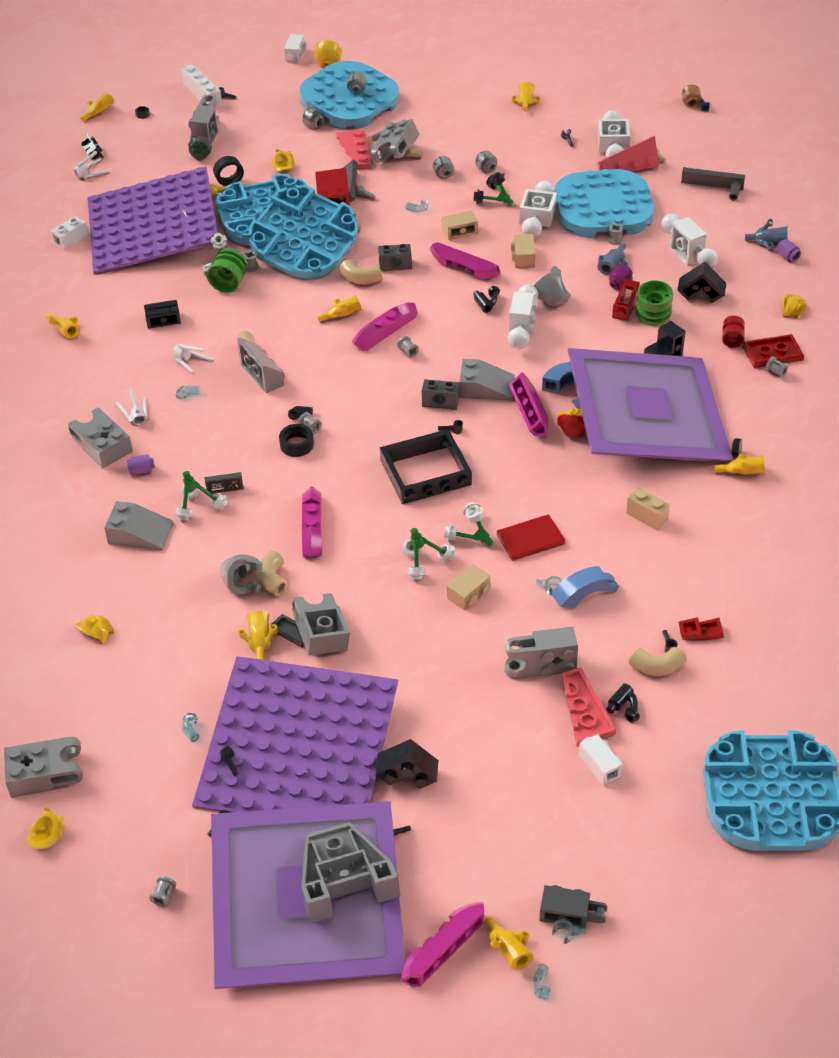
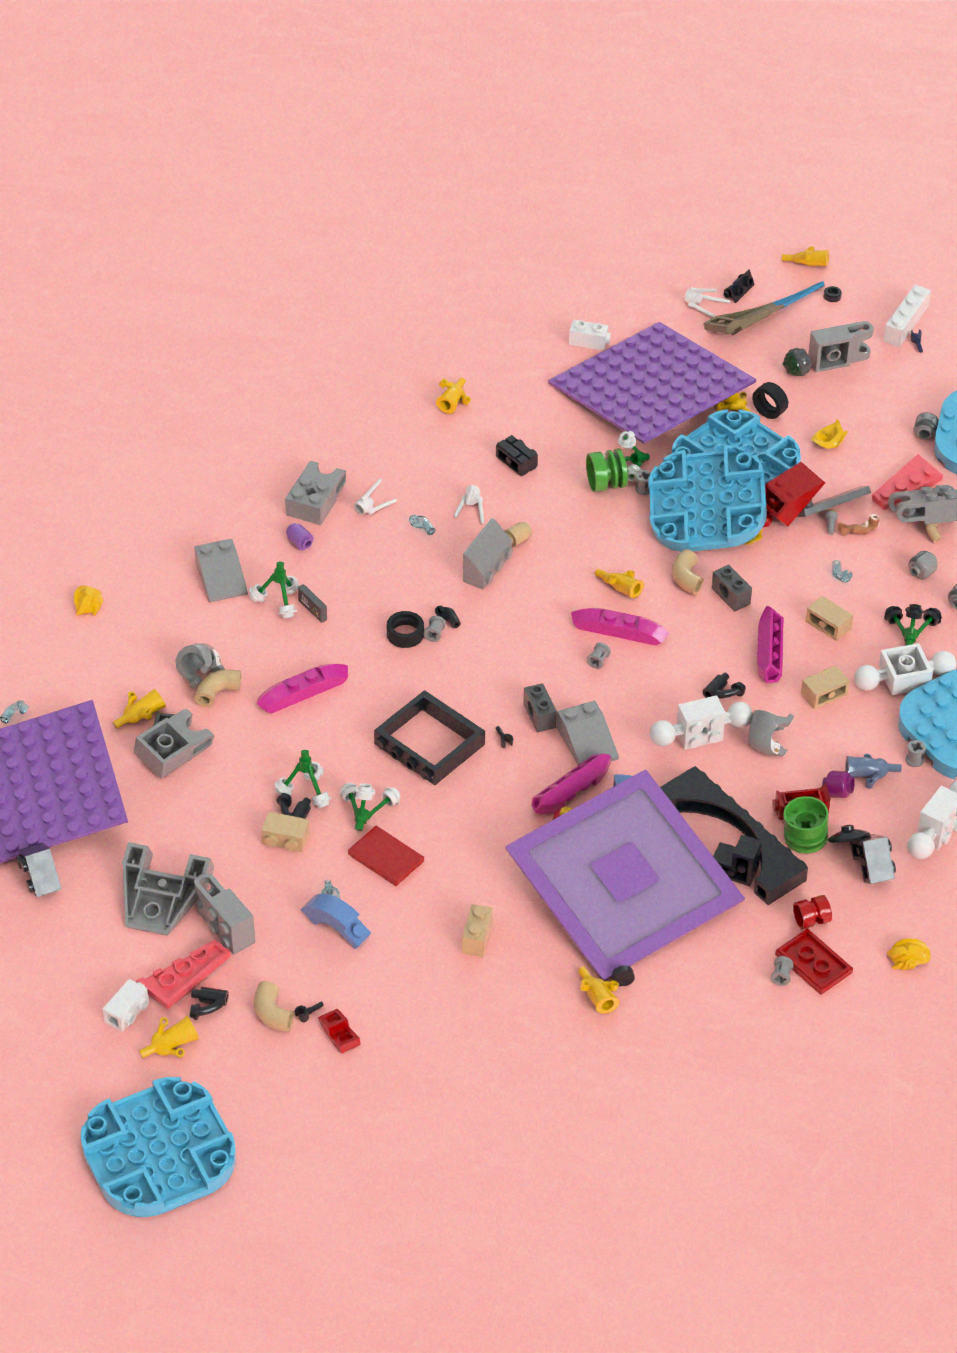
camera: 60 degrees right, 0 degrees up
(130, 154) = (738, 321): none -> dark tan plate
(383, 181) = (864, 528): none -> nougat arm
(447, 569) = (301, 810): none -> black plant
(485, 699) = (158, 899): none -> light grey wedge
(606, 338) = (779, 866): none -> black arch
(654, 739) = (164, 1041): none -> yellow piece
(679, 286) = (847, 834): none -> black dish

